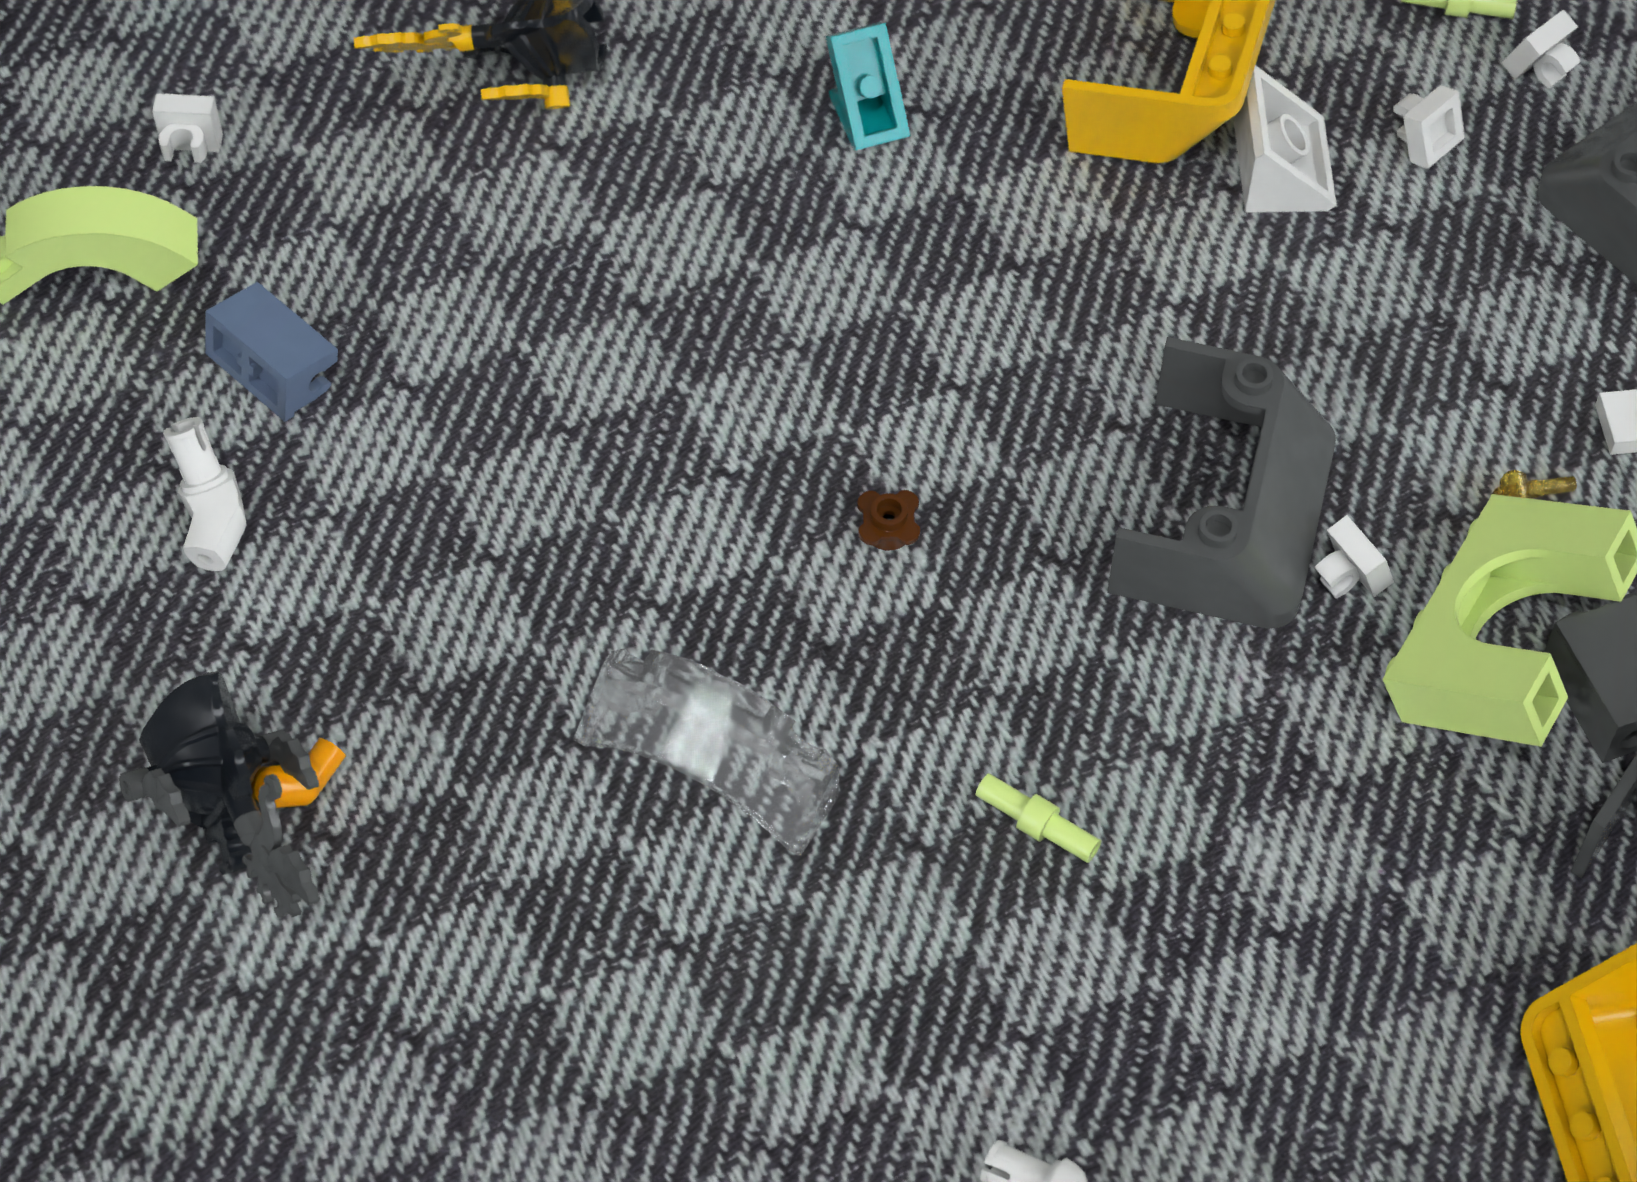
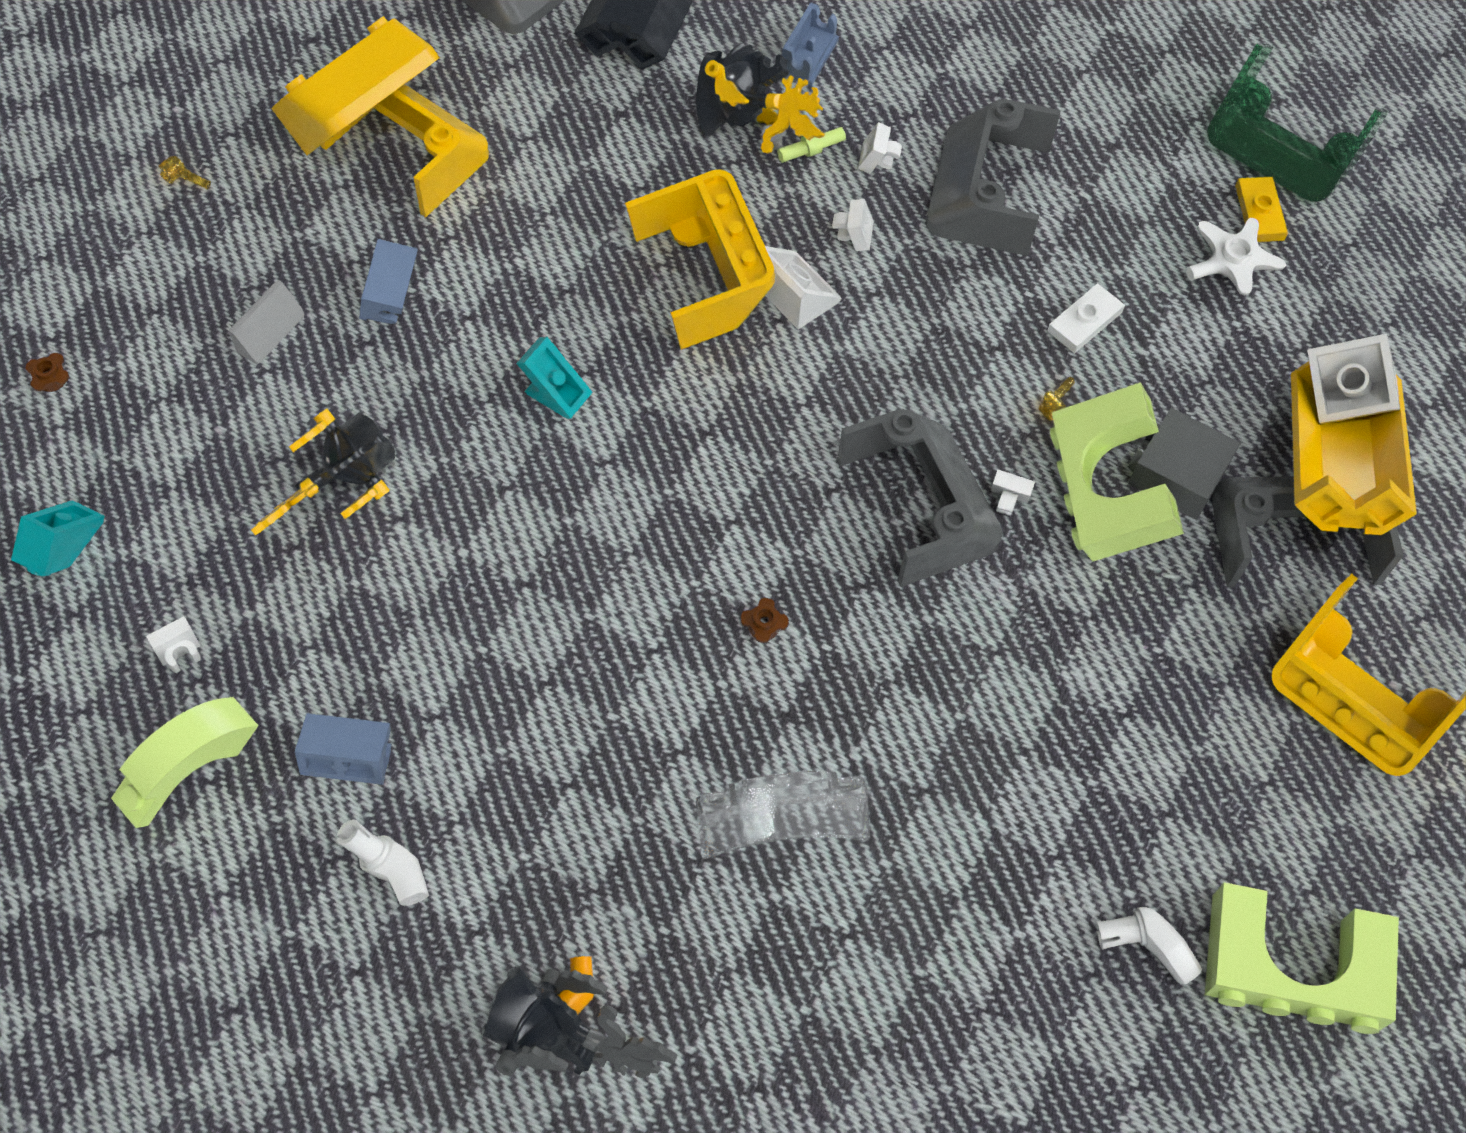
camera: 40 degrees left, 5 degrees up
(1038, 818) = (972, 734): yellowish green bar -> none

